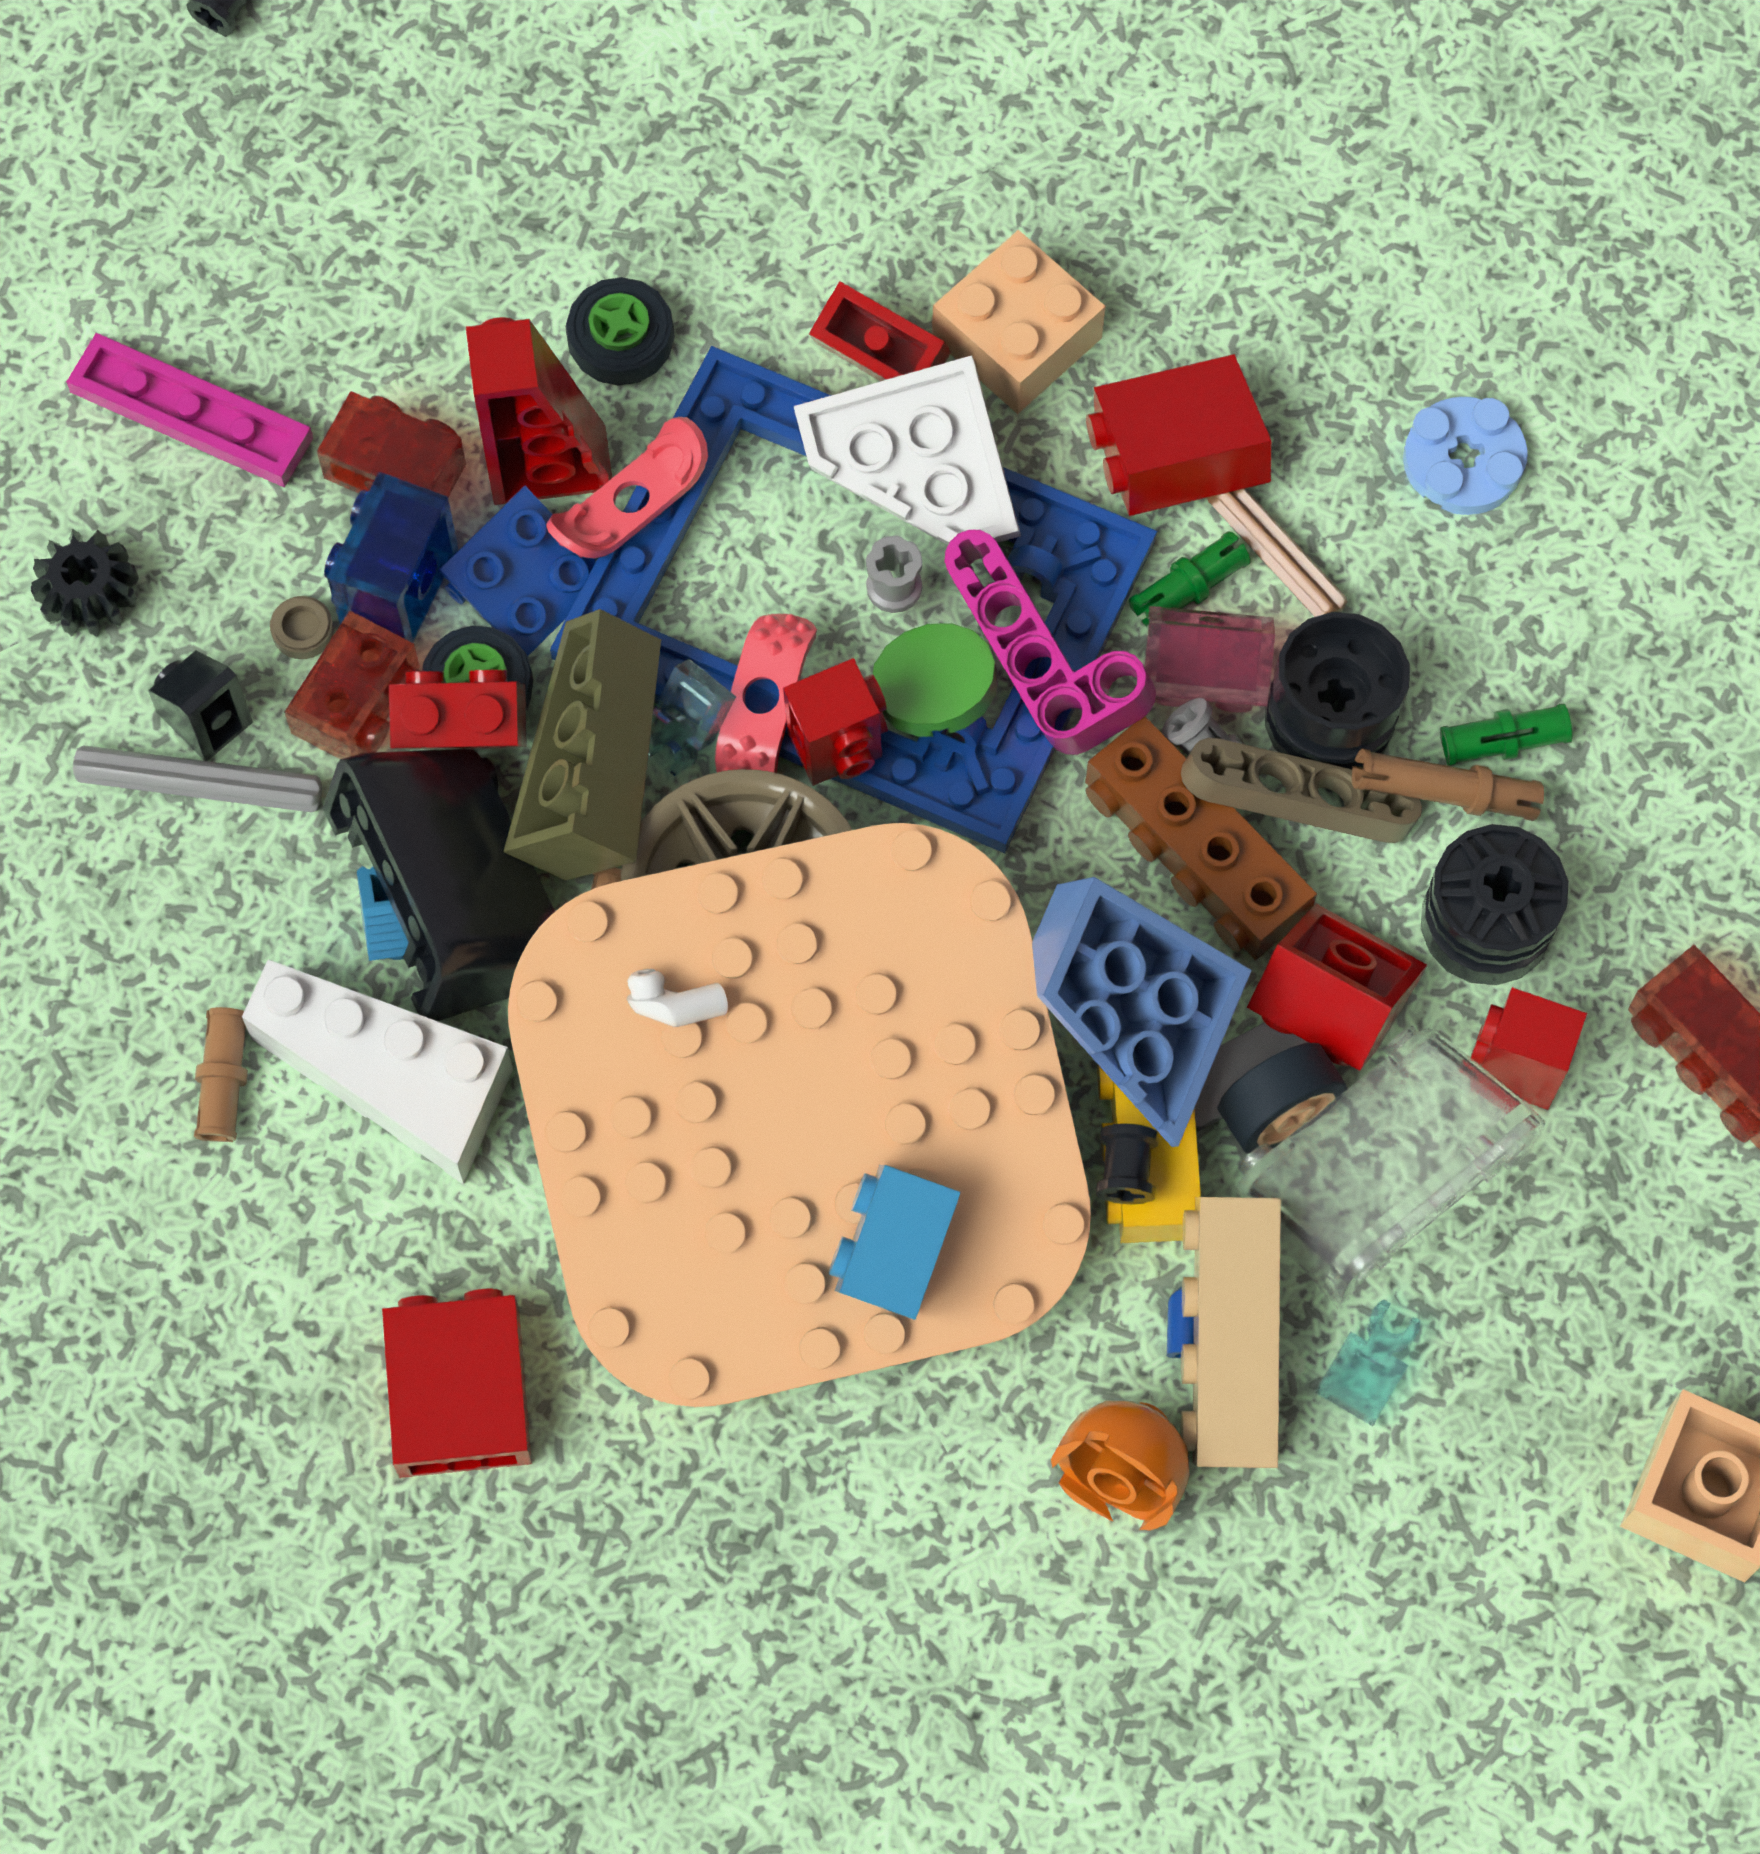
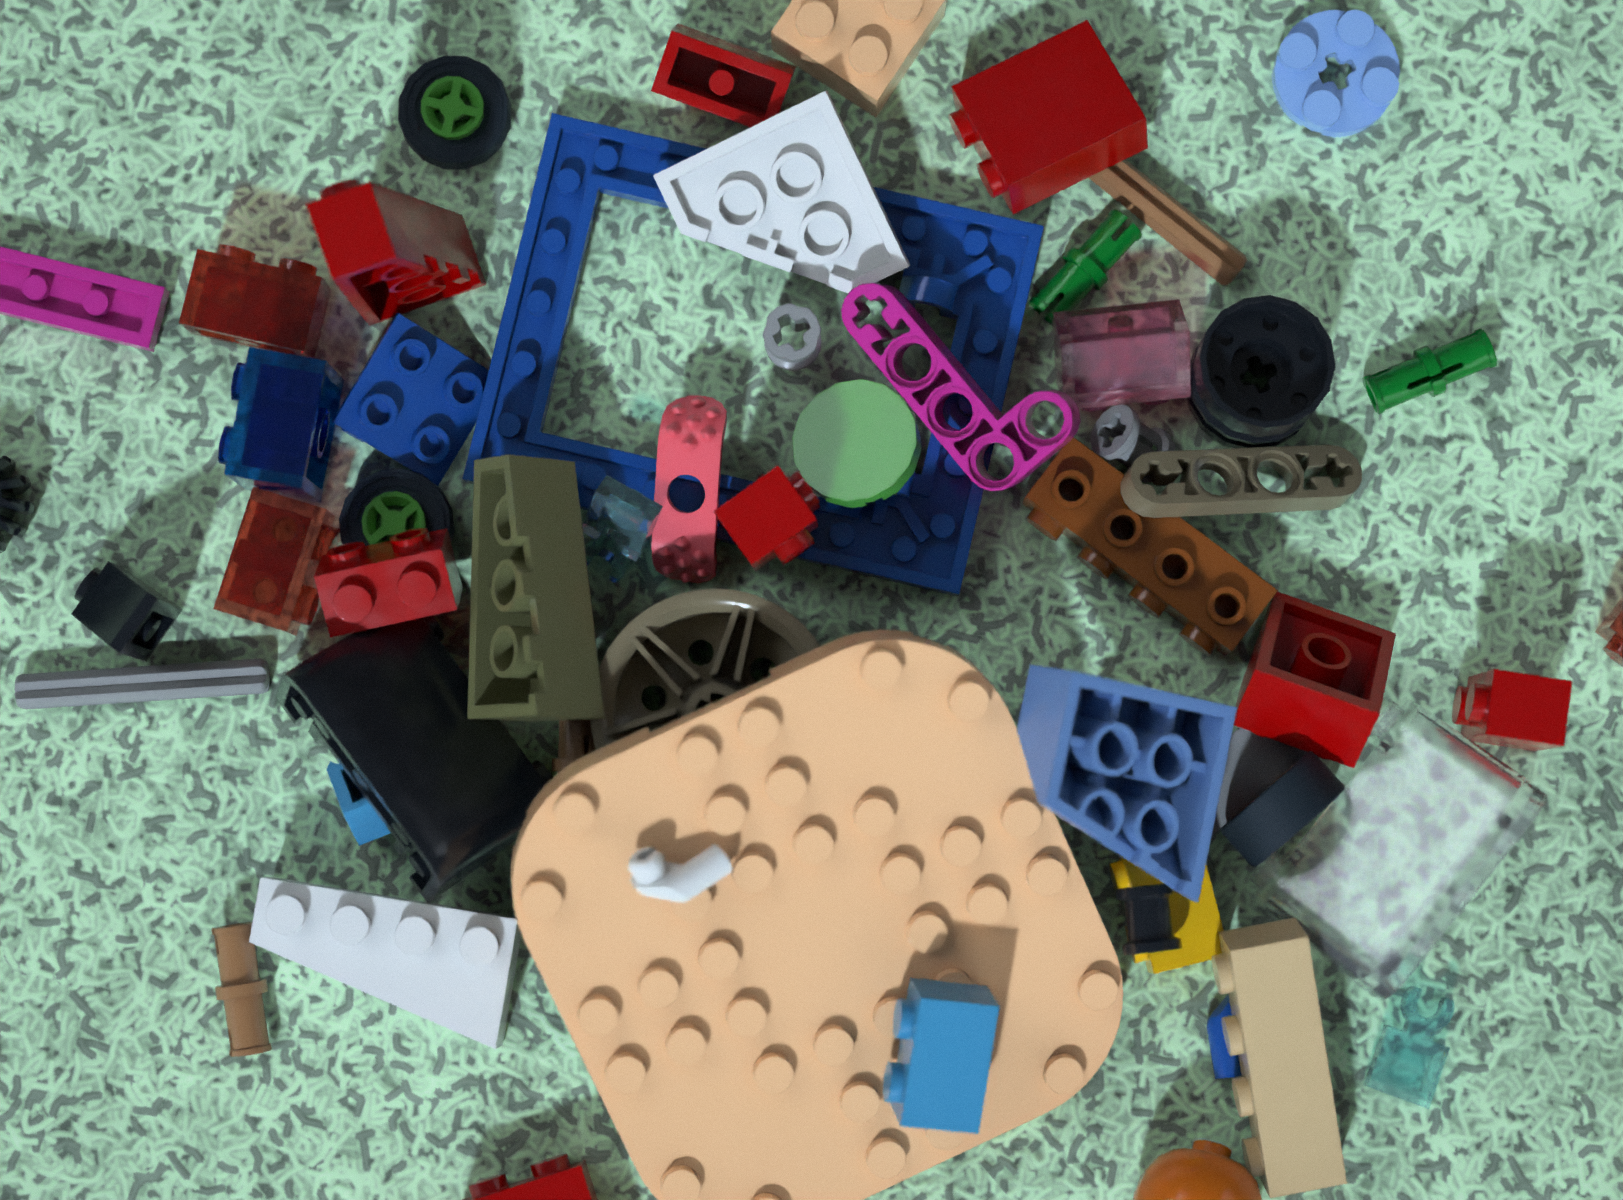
camera: 10 degrees left, 15 degrees up
(301, 627) = (207, 500): dark tan tile -> none
(665, 469) = (539, 265): coral piece -> none
(1472, 789) = (1405, 440): medium nougat pin -> none
(1487, 937) = (1427, 589): black wheel -> none

